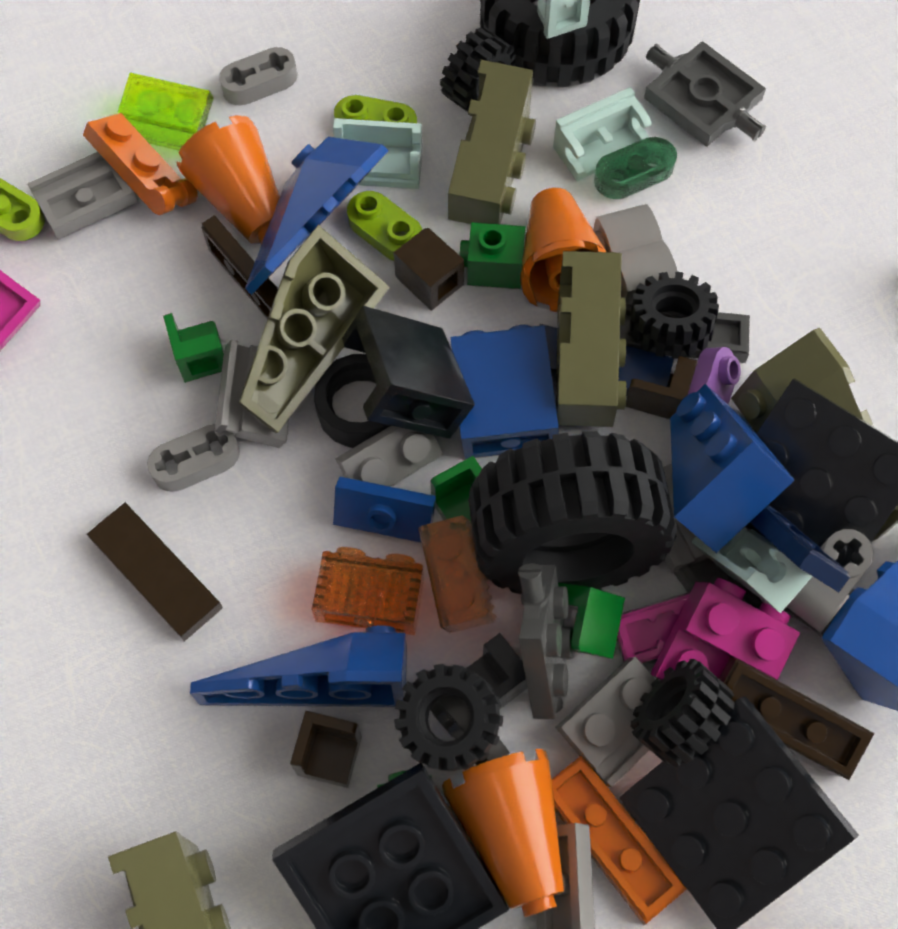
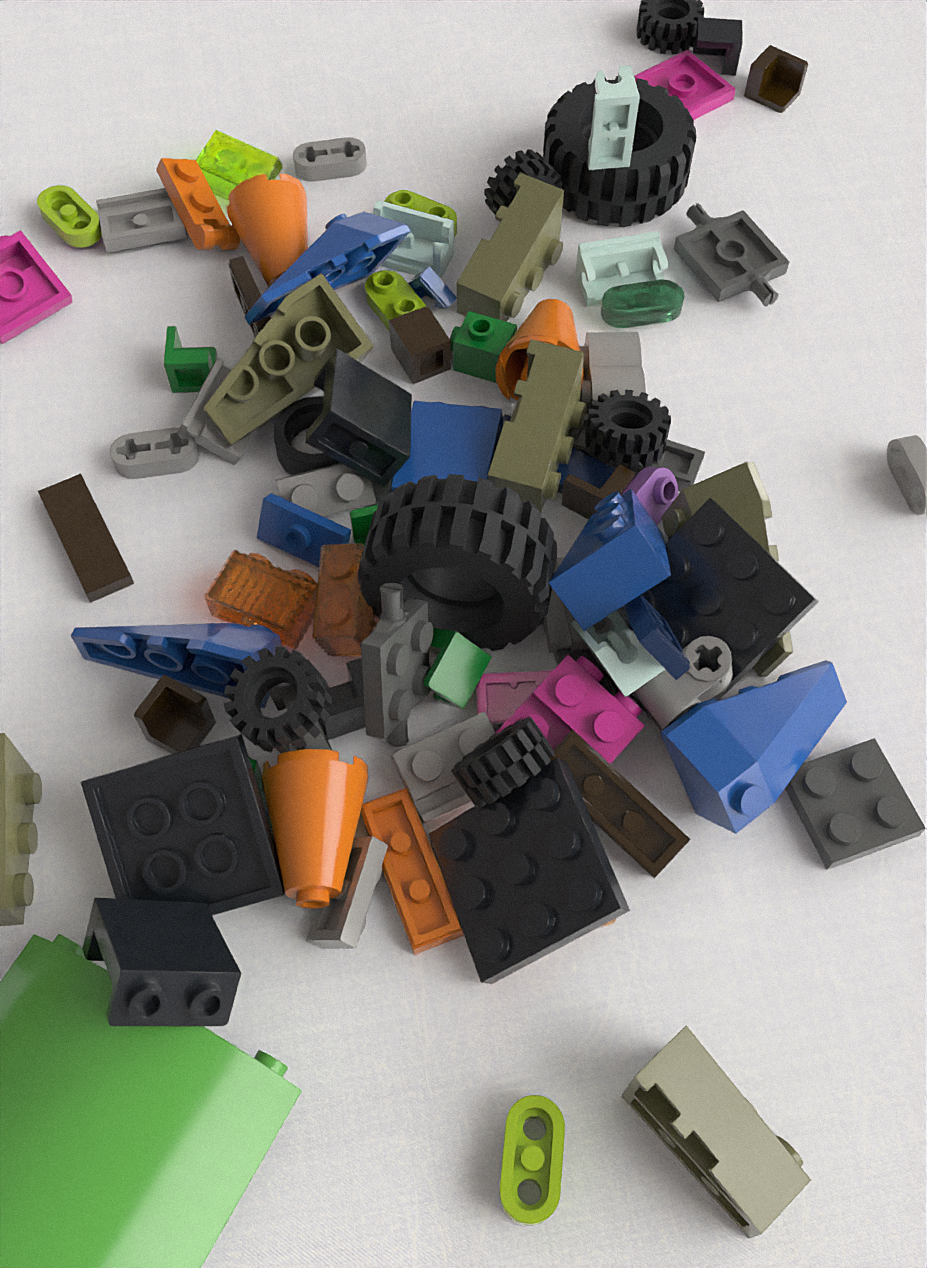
camera: 15 degrees right, 5 degrees down
(418, 198) = (431, 285): none -> blue tile

